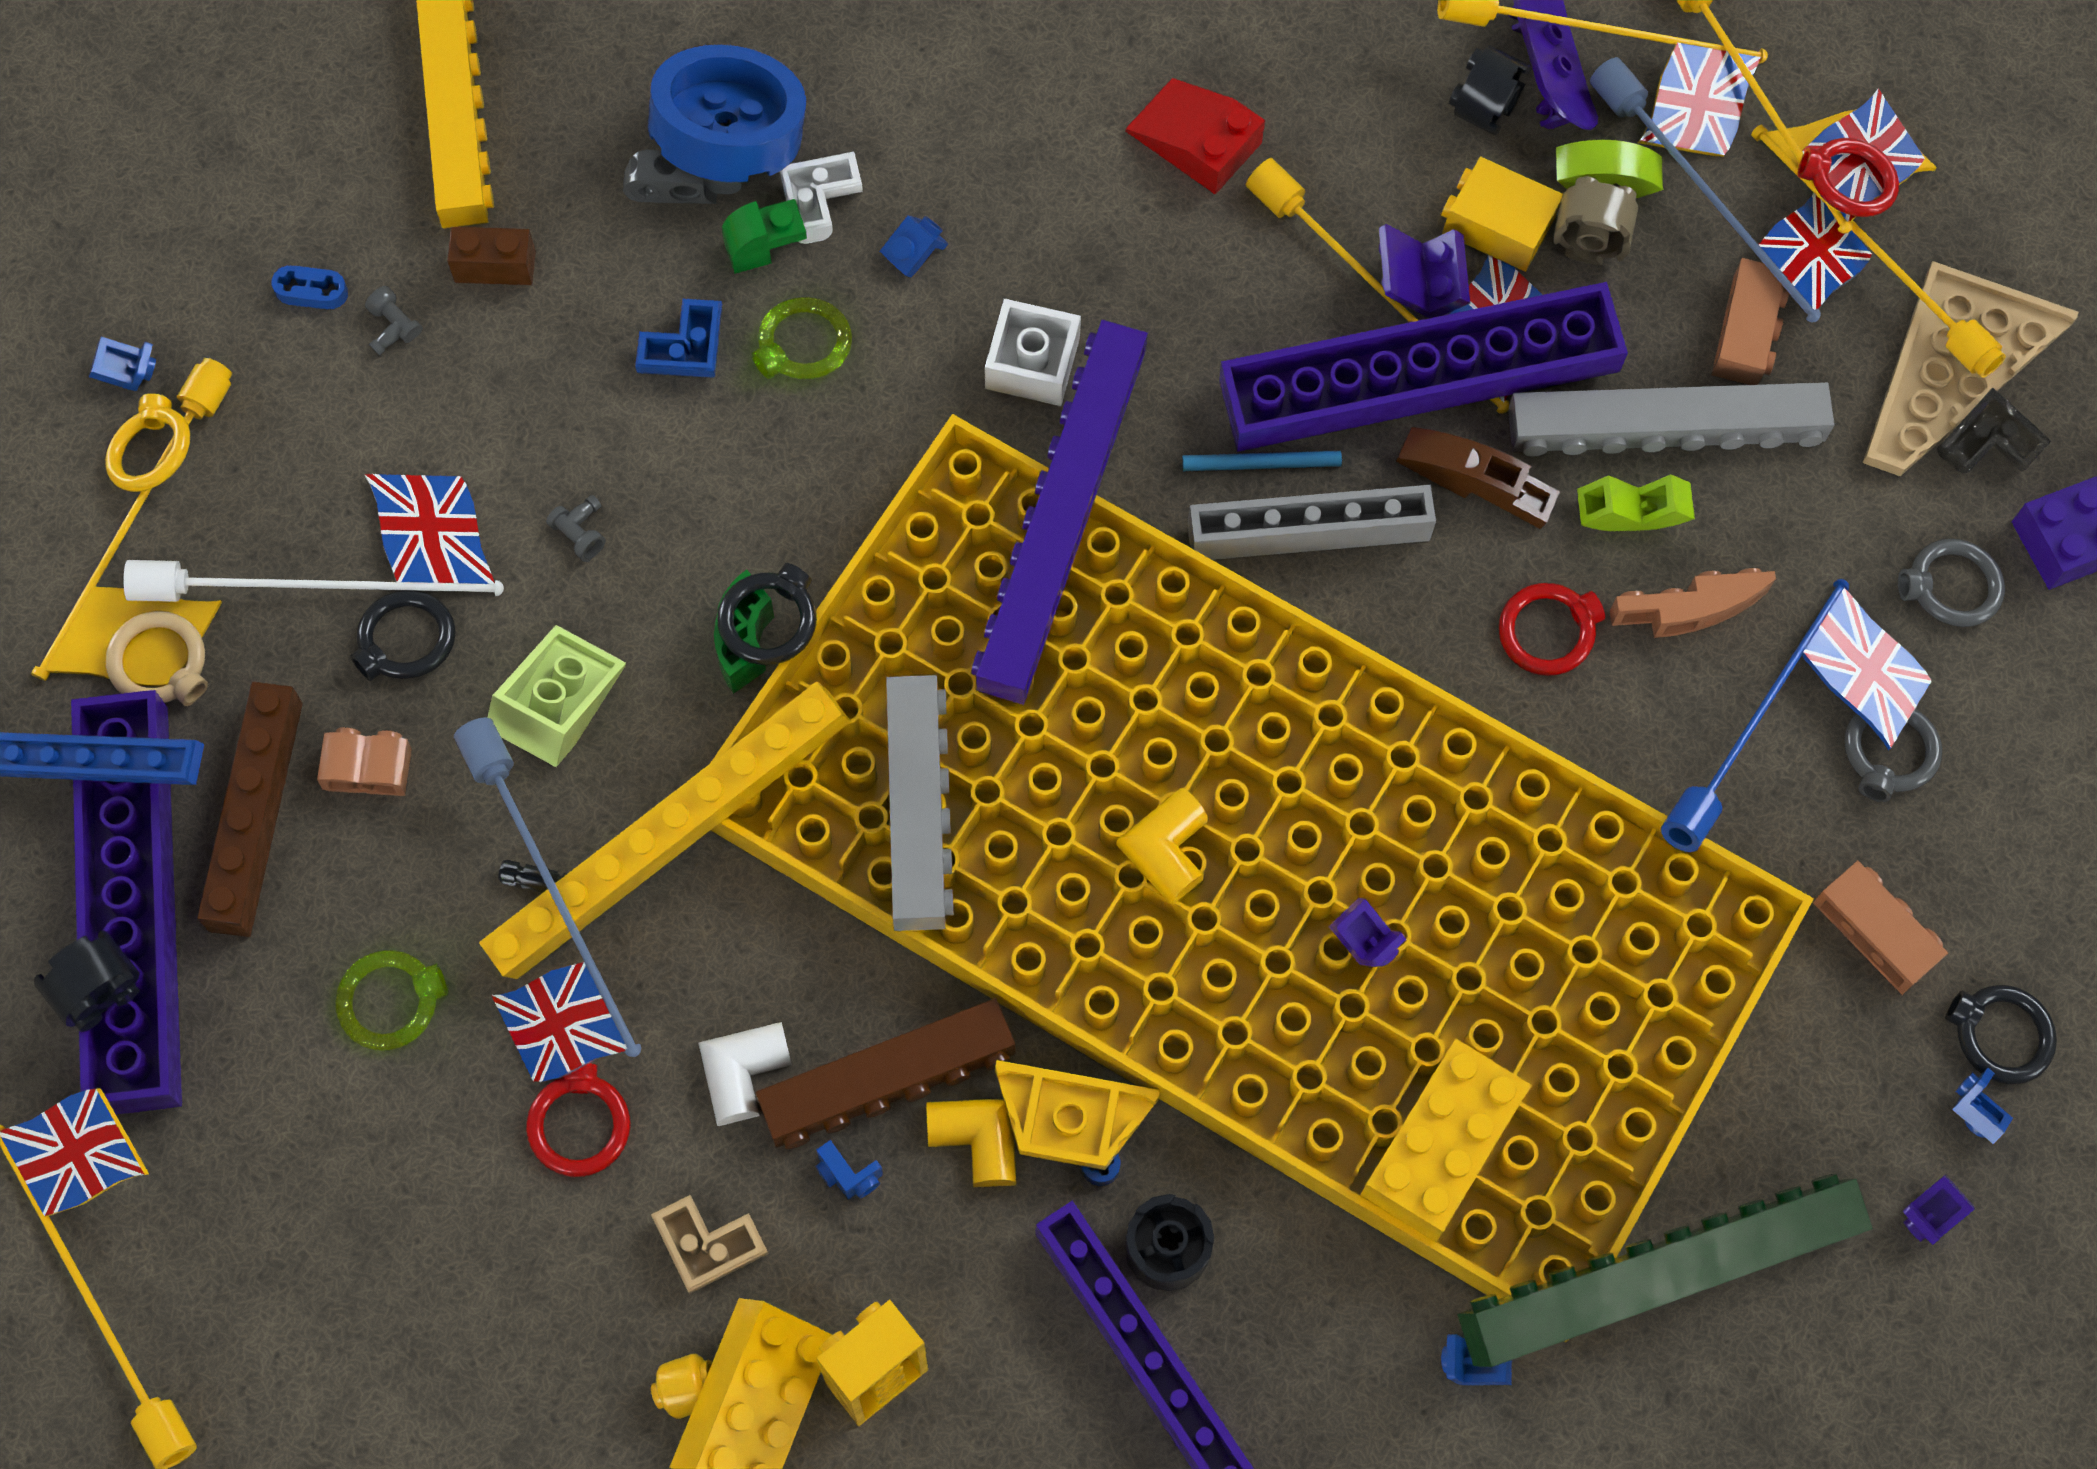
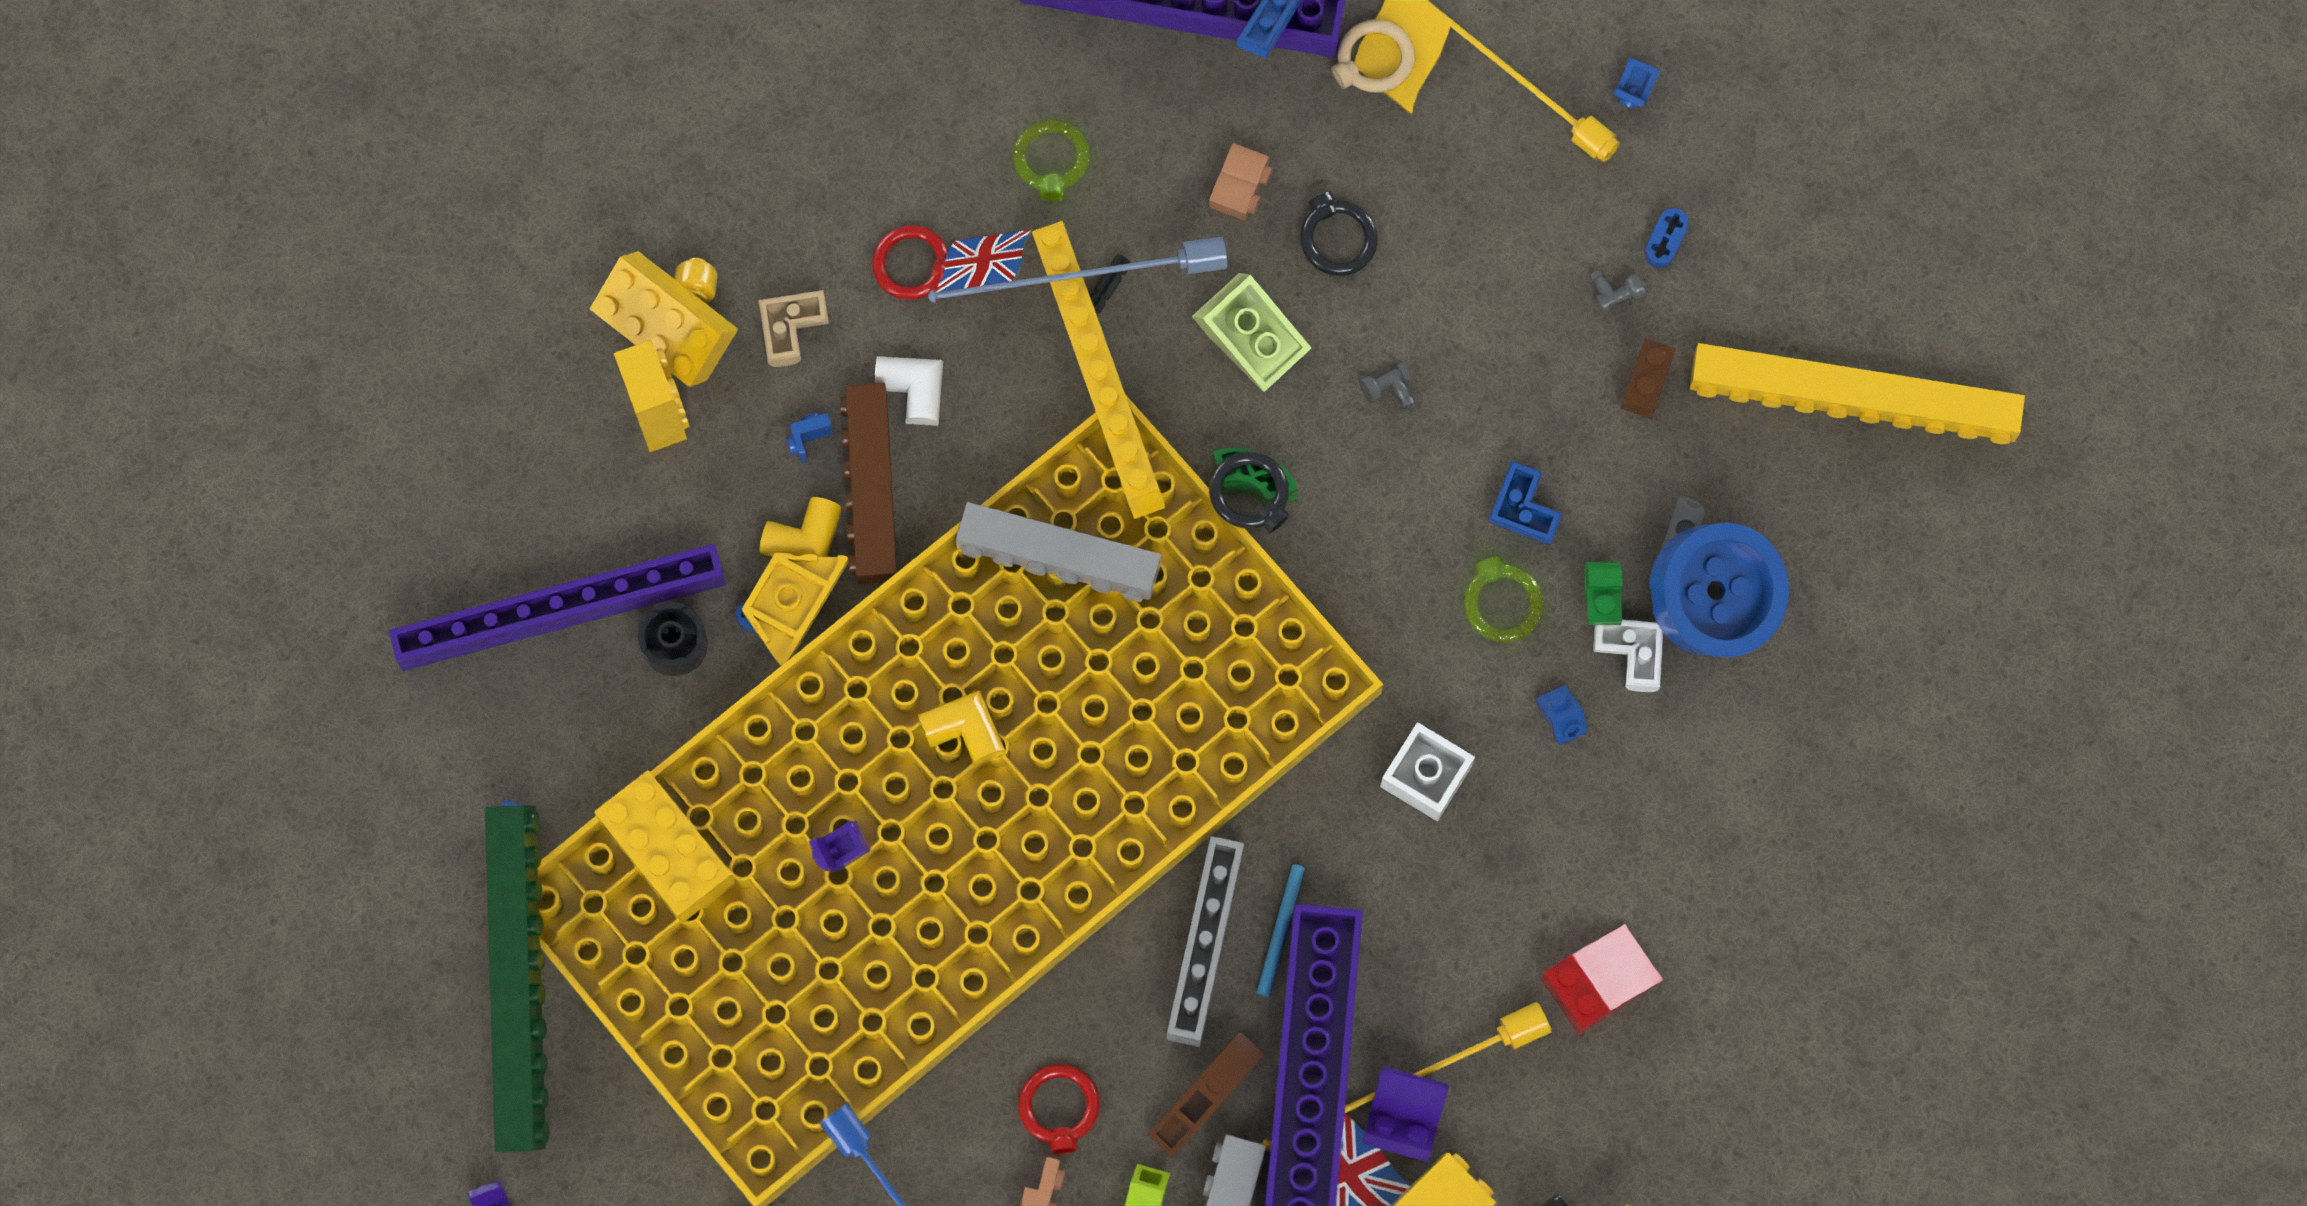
camera: 110 degrees right, 5 degrees up
(153, 413) = (1585, 98): yellow piece -> none
(250, 810) = (1228, 94): reddish brown brick -> none
(425, 532) = (1419, 272): flag -> none
(1061, 512) = (1266, 736): dark purple brick -> none

